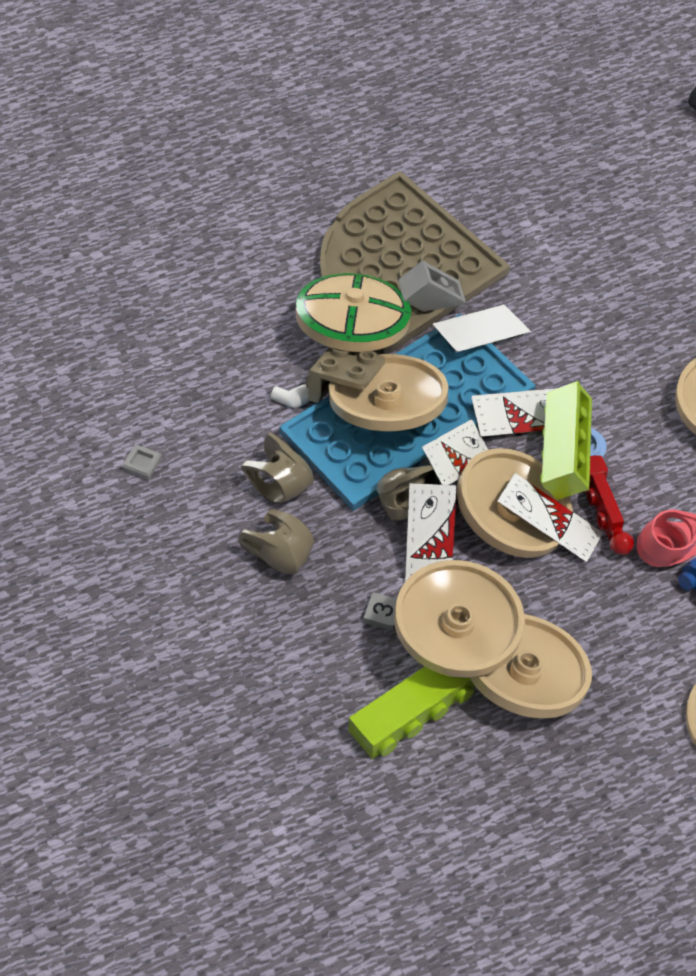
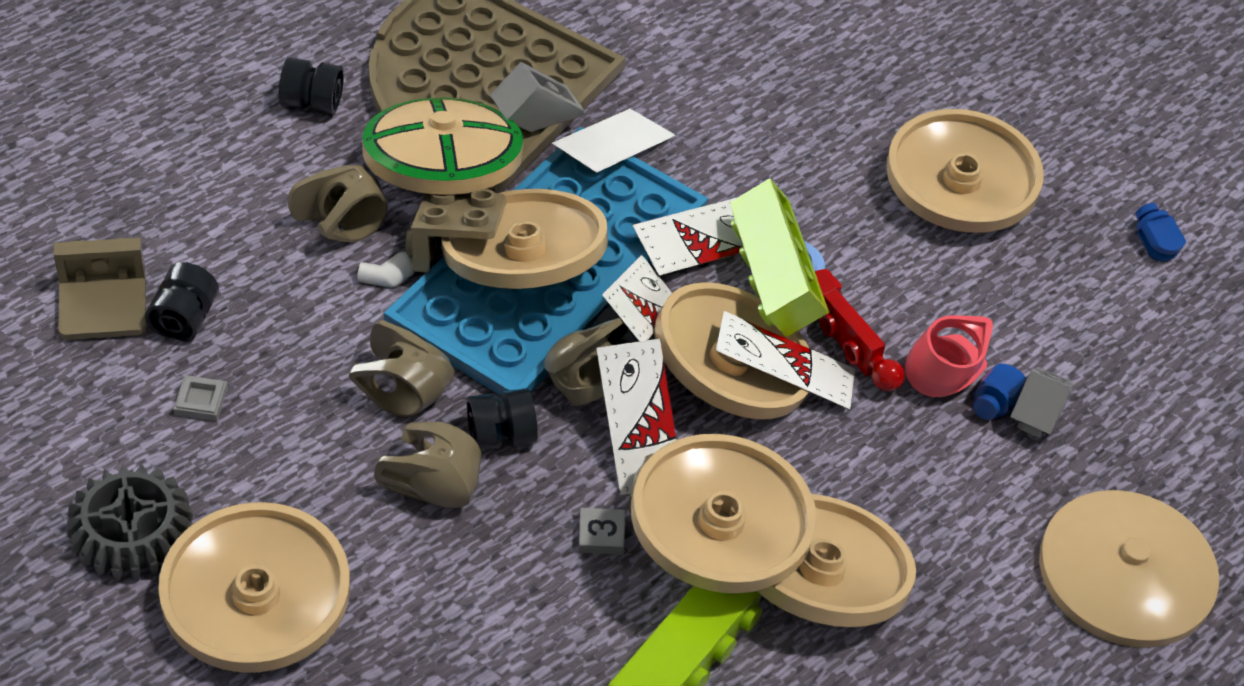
camera: 20 degrees left, 5 degrees down
(86, 545) = (101, 518): none -> dark grey gear
(96, 372) = (101, 288): none -> dark tan bracket
(139, 599) = (254, 587): none -> tan dish
(146, 392) = (182, 301): none -> black wheel
(269, 333) = (337, 192): none -> dark tan helmet
(274, 247) = (306, 85): none -> black wheel
(336, 519) = (502, 420): none -> black wheel

